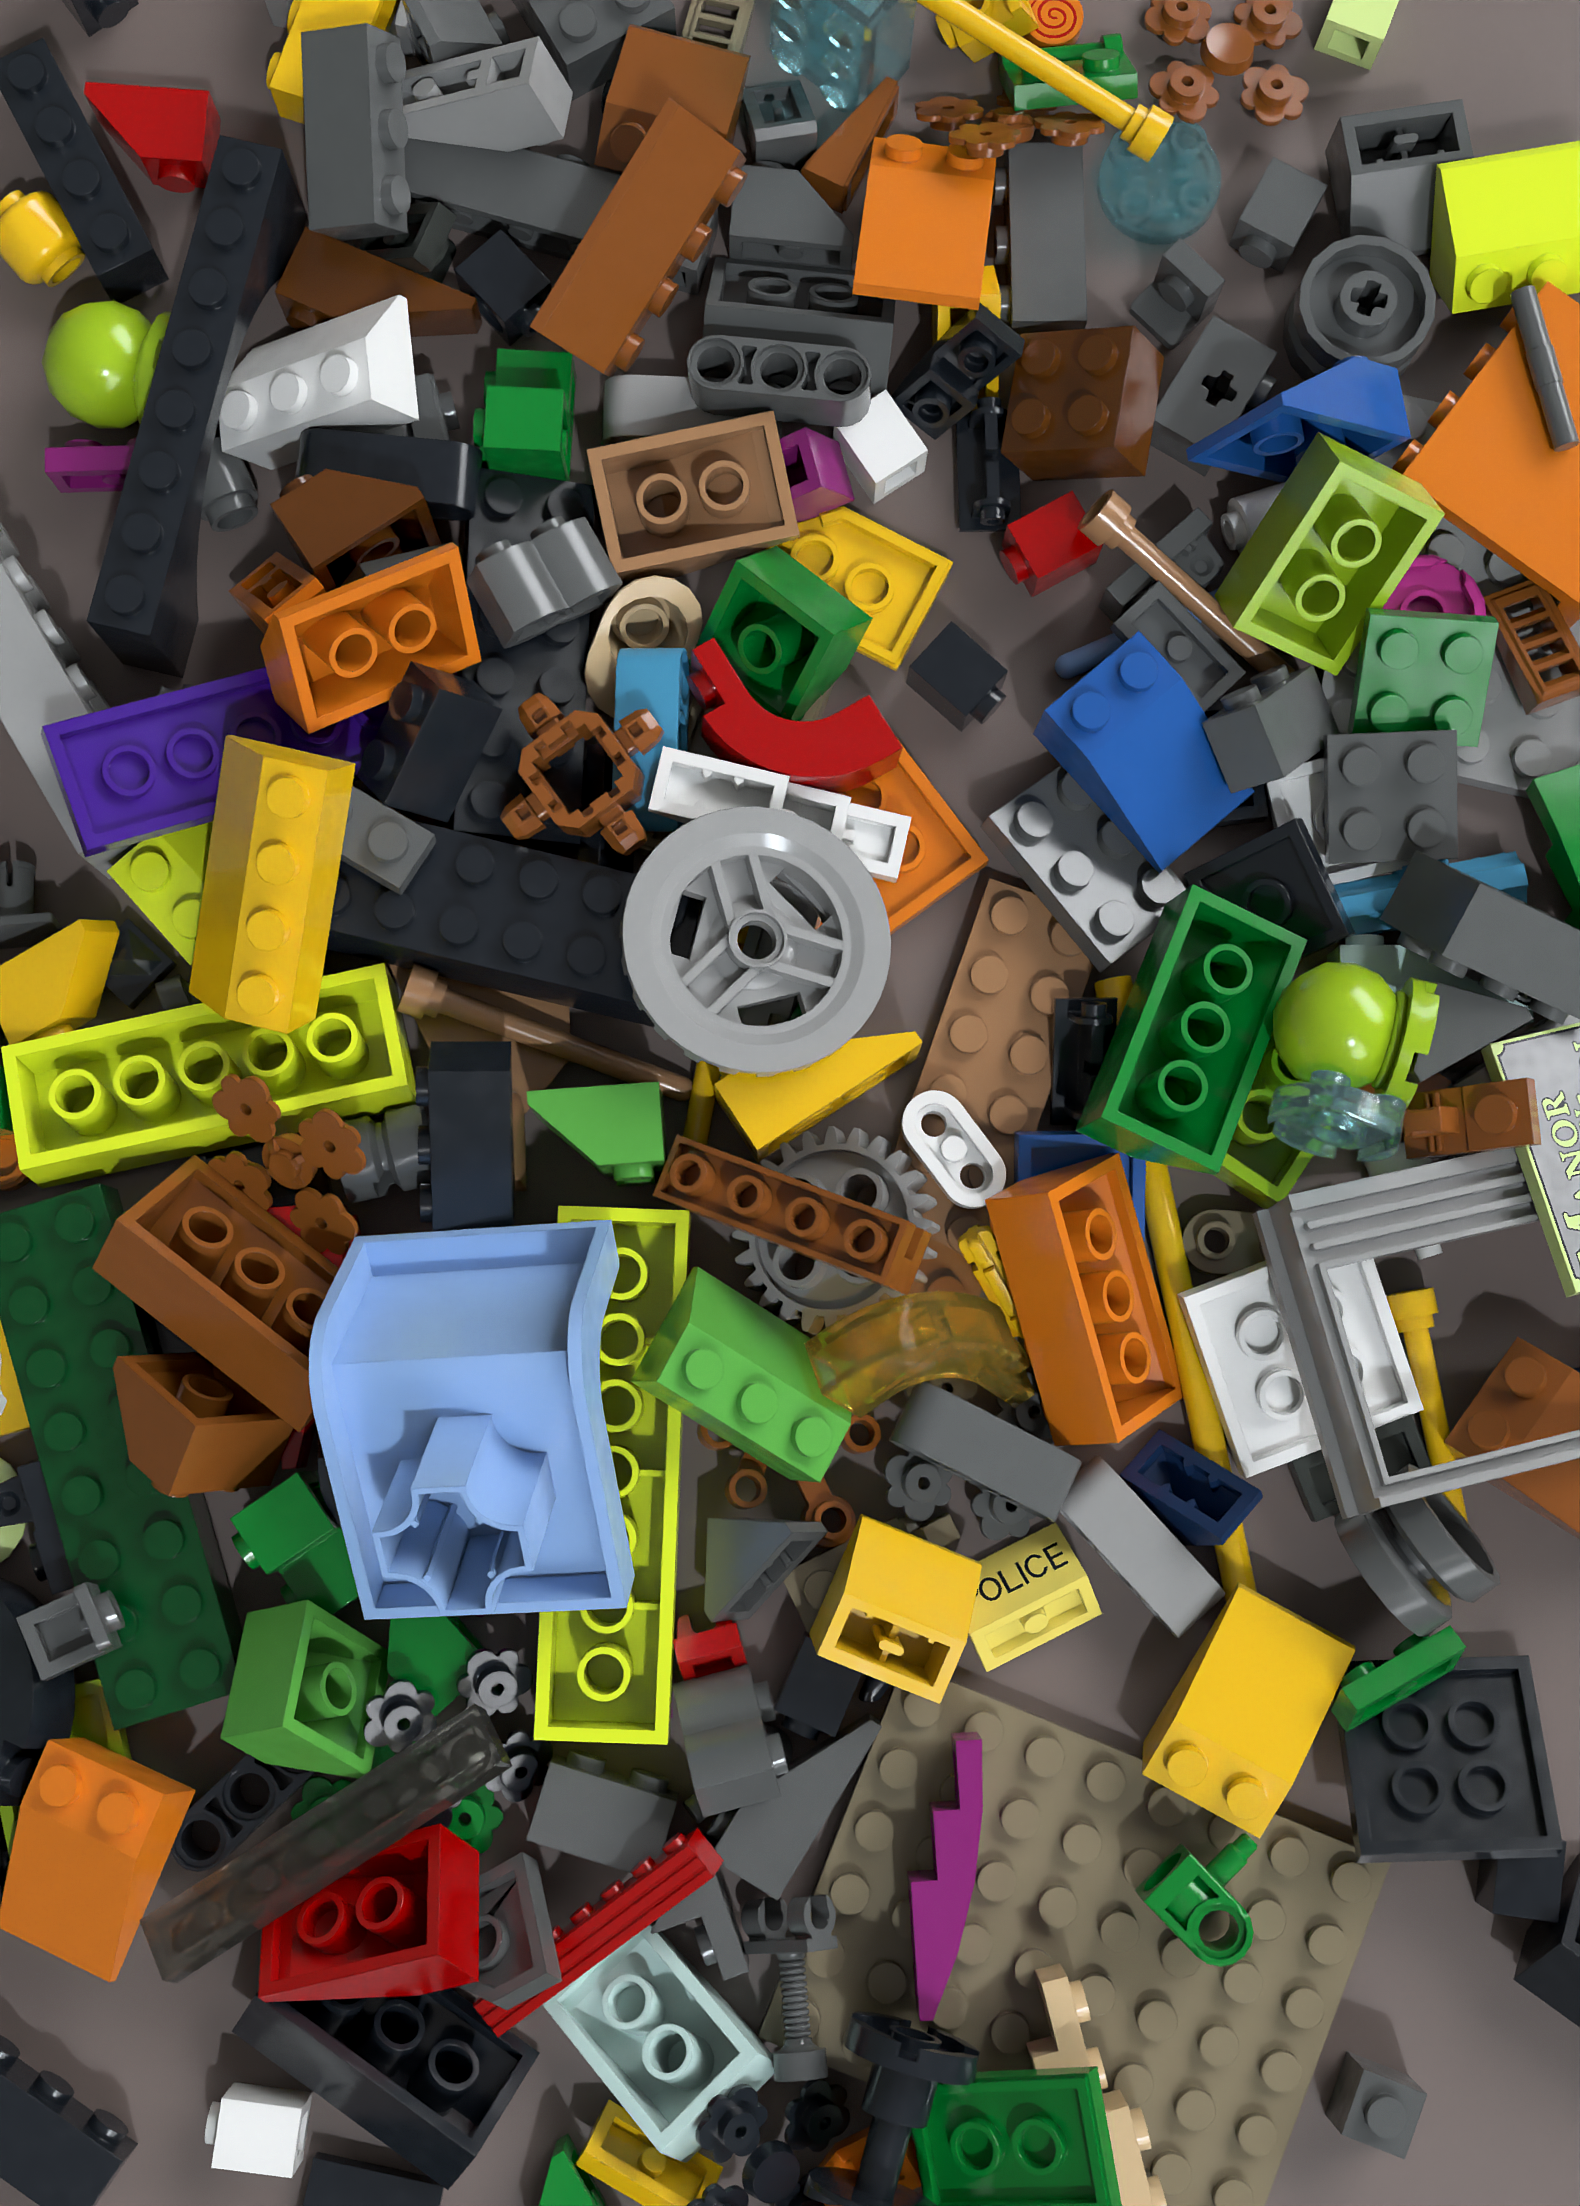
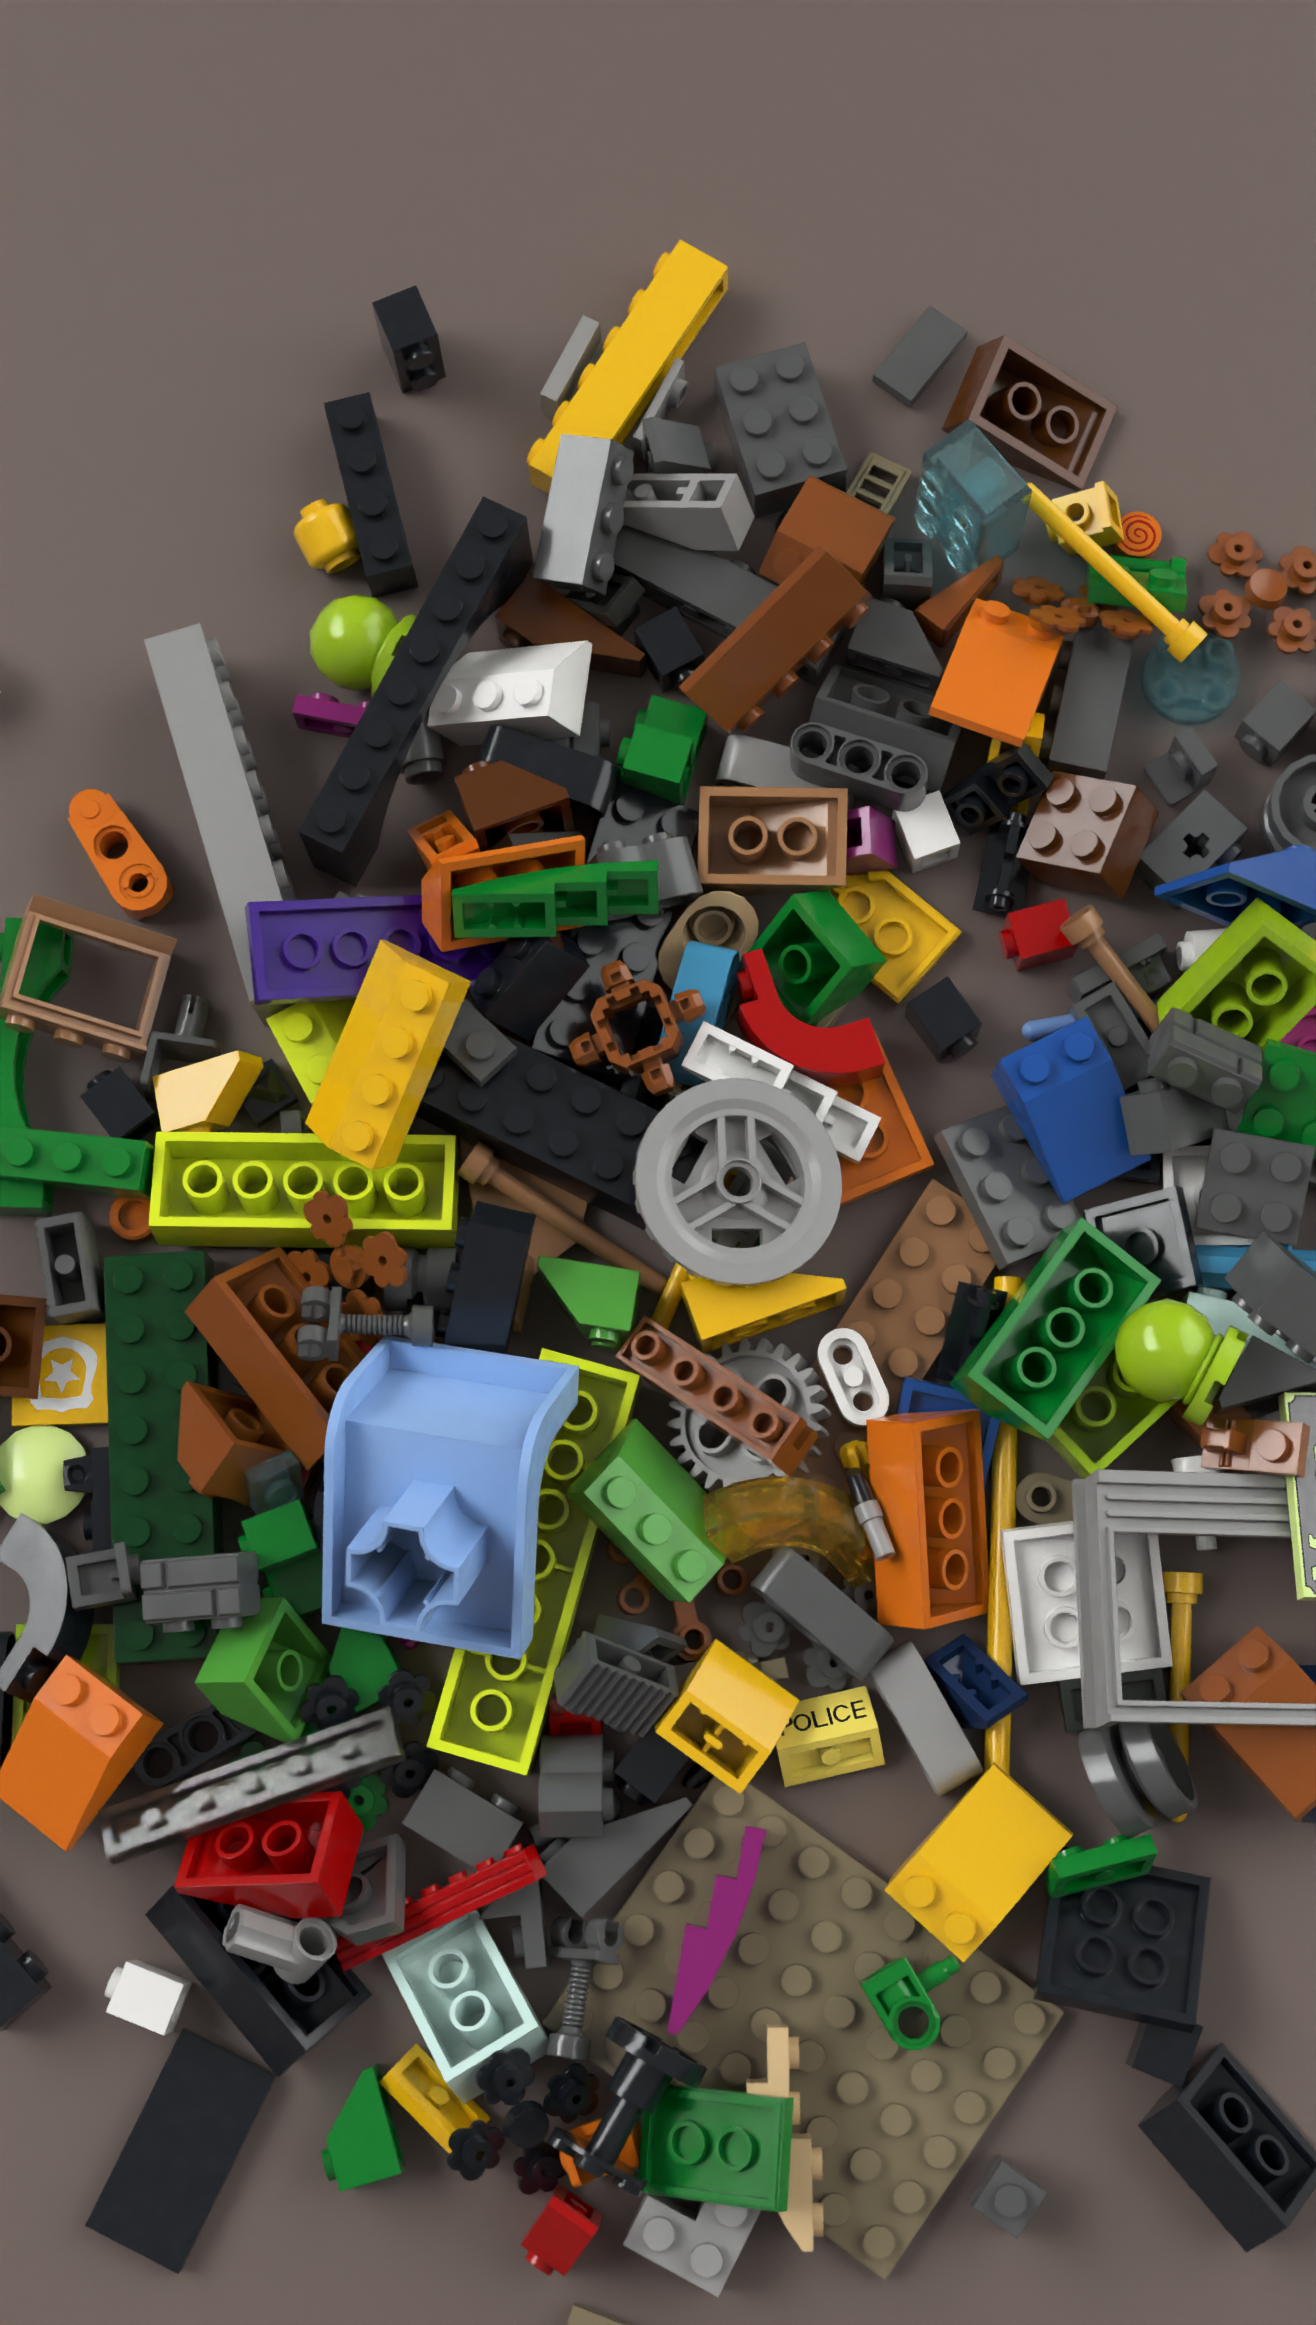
camera: 25 degrees right, 5 degrees down
(161, 130) = (440, 477): red slope -> none
(197, 1618) = (199, 1589): none -> dark grey brick
(261, 1458) = (274, 1483): none -> clear light blue plate
(266, 1217) = (324, 1304): none -> dark grey bar
(405, 2029) = (288, 1946): none -> light grey piece
(440, 629) = (548, 898): none -> green slope
(751, 1606) = (615, 1685): none -> dark grey brick
(1016, 1316) = (869, 1514): none -> light grey piece
(1298, 653) = (1204, 1060): none -> dark grey brick
(1332, 1114) = (1143, 1417): clear light blue plate -> none

